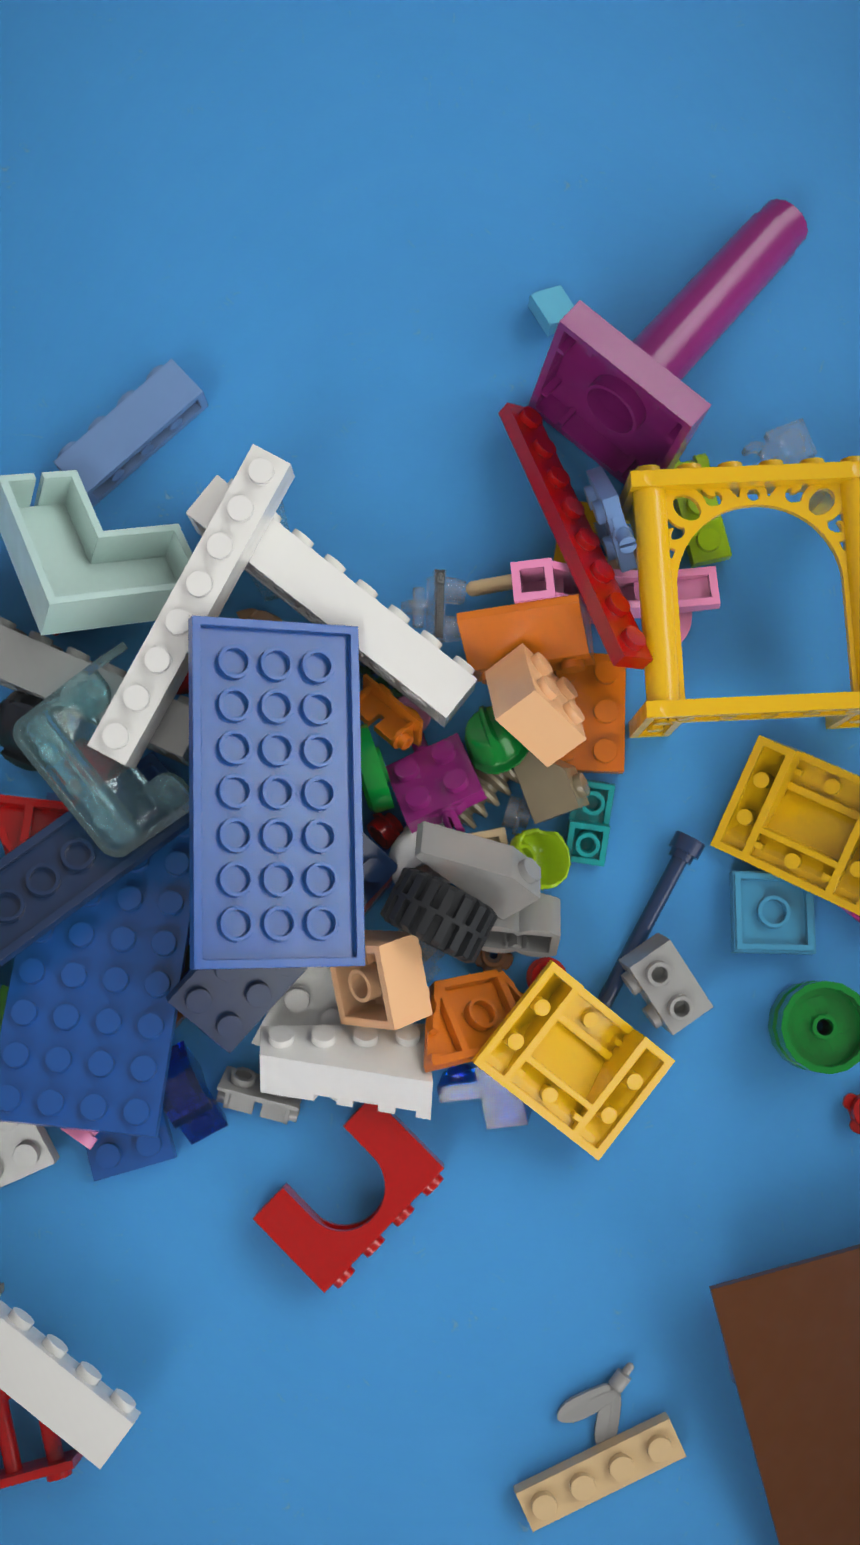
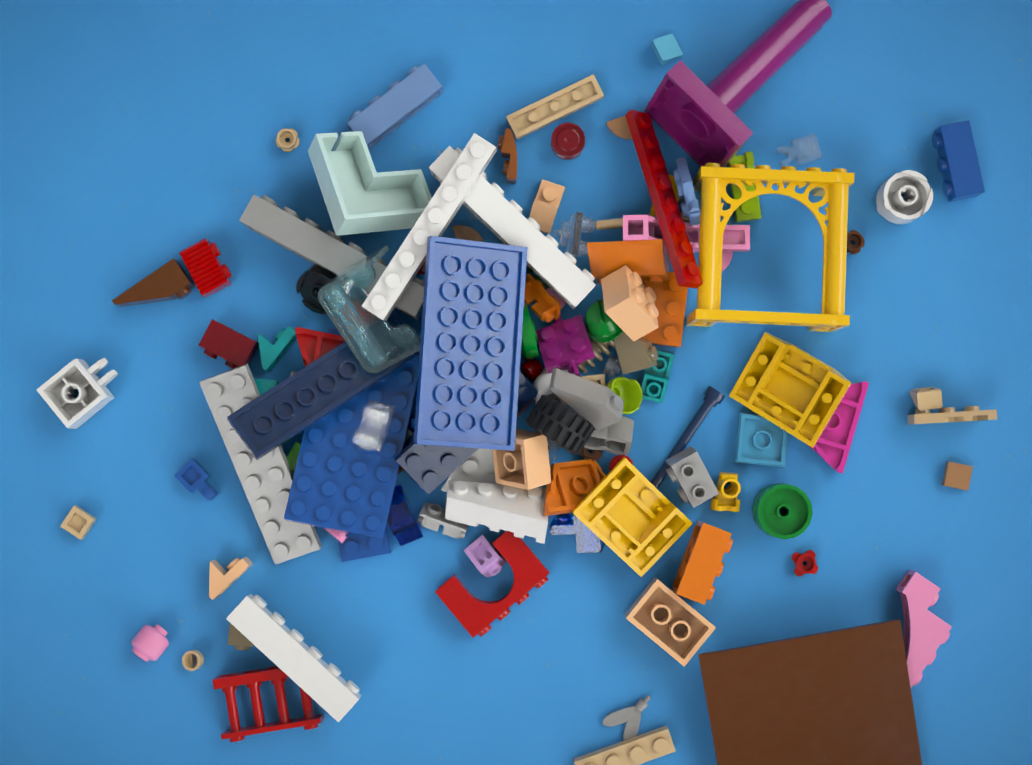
camera: 10 degrees right, 5 degrees up
(127, 946) = (374, 426): none -> clear brick
(317, 484) = (508, 150): none -> dark orange slope
(333, 1150) = (484, 557): none -> lavender bracket
(385, 411) = (555, 107): none -> tan plate
(387, 563) = (546, 204): none -> light nougat slope
(411, 462) = (568, 141): none -> dark red wheel
(492, 436) = (620, 128): none -> medium nougat tile
(653, 1233) = (669, 621): none -> light nougat brick
(697, 1127) = (702, 562): none -> orange brick
(727, 1011) = (727, 497): none -> yellow plate

